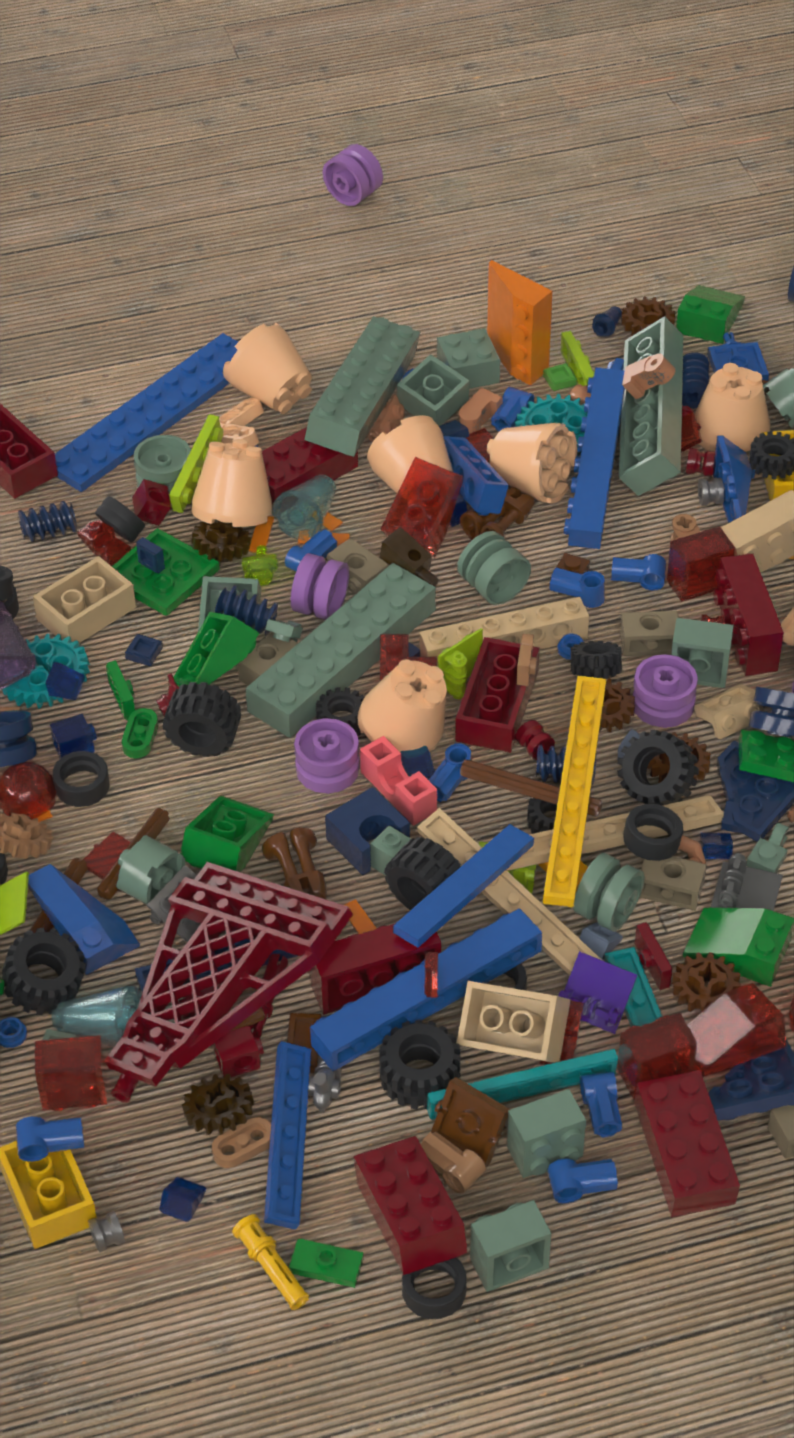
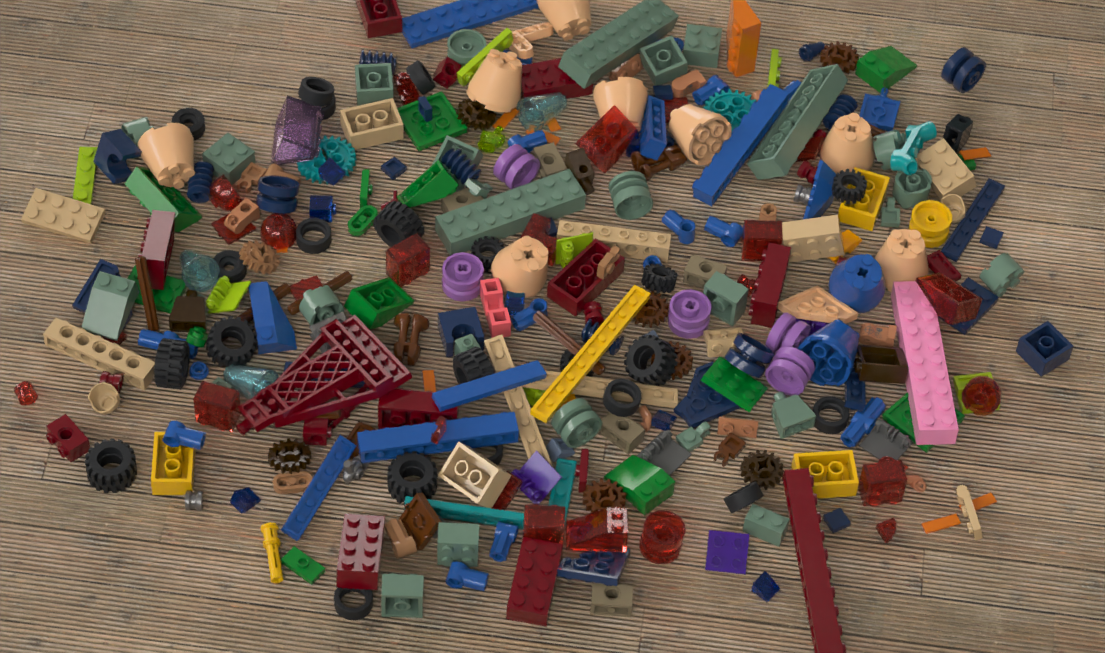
camera: 20 degrees right, 5 degrees up
(57, 548) = (373, 82): none -> sand green brick
(239, 760) = (408, 260): none -> clear red brick
(559, 377) = (757, 79): bright green tile -> none
(574, 563) = (686, 211): reddish brown plate -> none
(647, 374) = (798, 101): nougat leg -> none

